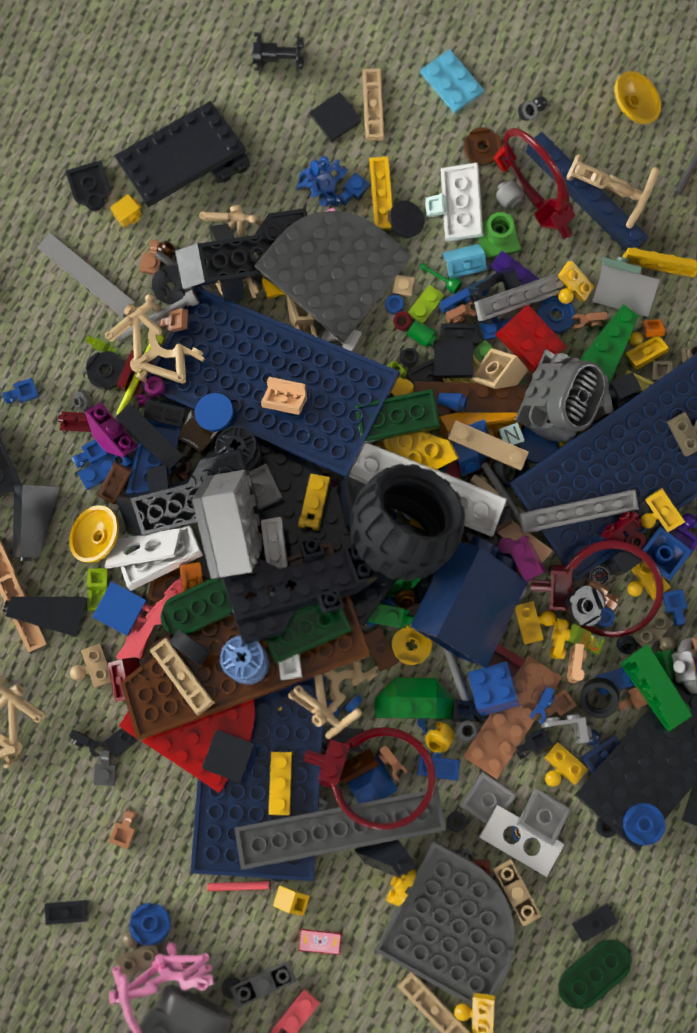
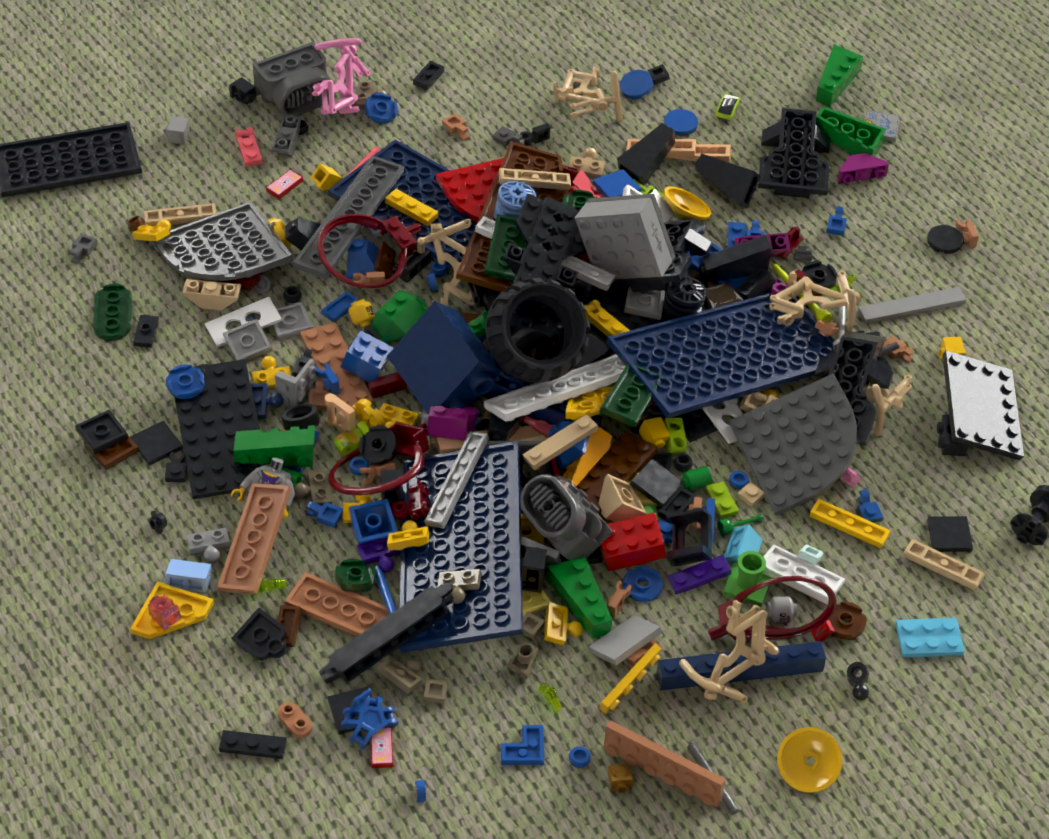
camera: 120 degrees right, 30 degrees down
(89, 185) = (993, 342): black plate -> none
(115, 482) = (719, 236): reddish brown plate -> none
(167, 248) = (900, 364): reddish brown plate -> none
(189, 647) = (548, 177): black tyre -> none
(214, 412) = (728, 304): blue tile -> none
(228, 756) = (456, 184): black tile -> none
(284, 396) = (703, 338): light nougat bracket -> none
(322, 182) = (888, 488): blue piece -> none
(398, 316) = (719, 474): dark red plate -> none
(406, 219) = (811, 524): black tile -> none
(453, 401) = (616, 453): blue cone -> none
(471, 726) = (350, 327): dark grey cone -> none
(511, 434) = (558, 470): light aqua tile -> none
(518, 297) = (674, 557): light grey tile -> none
(576, 284) = (661, 605): yellow plate -> none
(621, 263) = (652, 634): sand green plate -> none
(626, 644) = (325, 463): black plate -> none
(653, 328) = (574, 642): orange tile -> none

